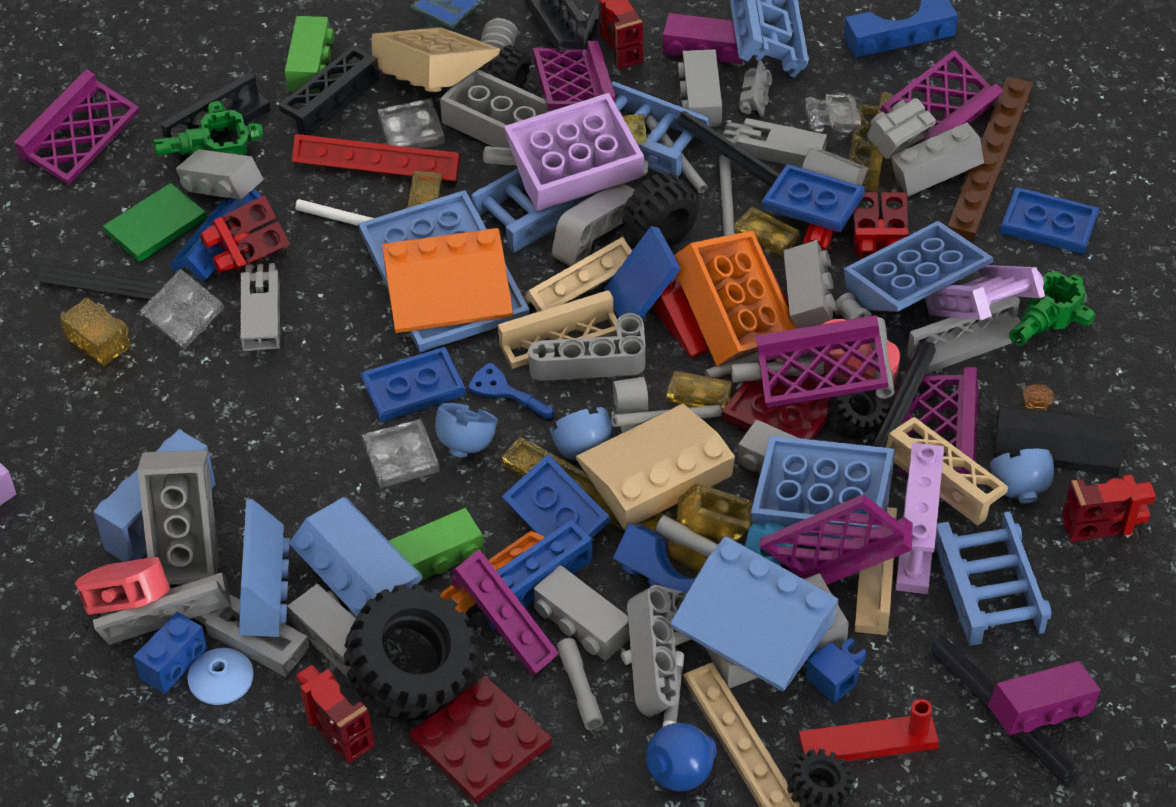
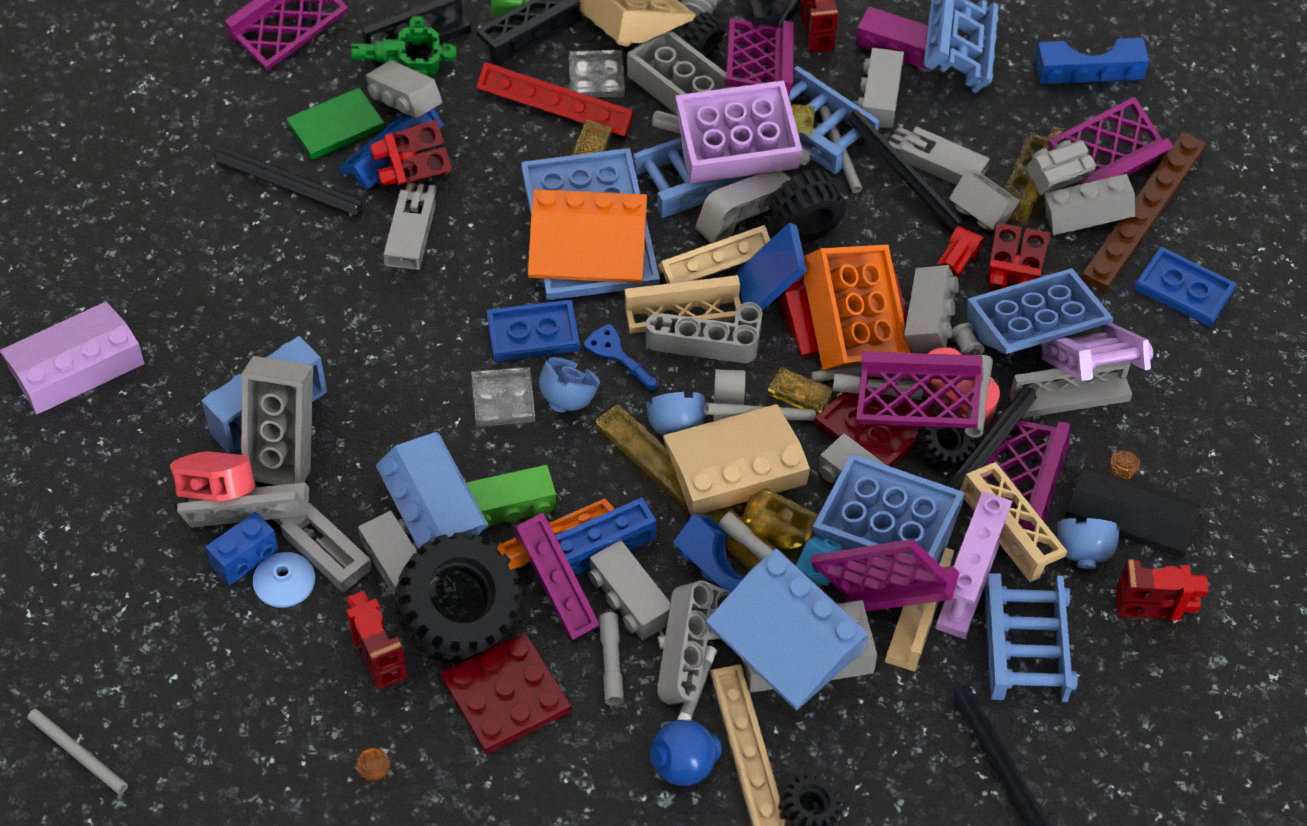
camera: 10 degrees right, 5 degrees up
(95, 331) = (253, 221): clear yellow brick -> none
(182, 309) = (337, 215): clear plate -> none
(263, 573) = (342, 489): medium blue slope -> none
(329, 212) = (500, 145): white bar -> none
(551, 498) = (631, 472): blue plate -> none
(726, 196) = (877, 204): light grey bar -> none
(755, 89) = (934, 99): light grey hinge -> none
(768, 230) = (906, 244): clear yellow plate -> none
(813, 198) = (958, 221): blue tile -> none
(835, 110) = (1005, 136): clear plate -> none
(835, 670) = (854, 698): blue brick -> none
(876, 737) = (874, 772): red piece -> none
(1044, 313) = (1154, 382): green piece -> none
(1044, 698) = (1046, 769): magenta brick -> none

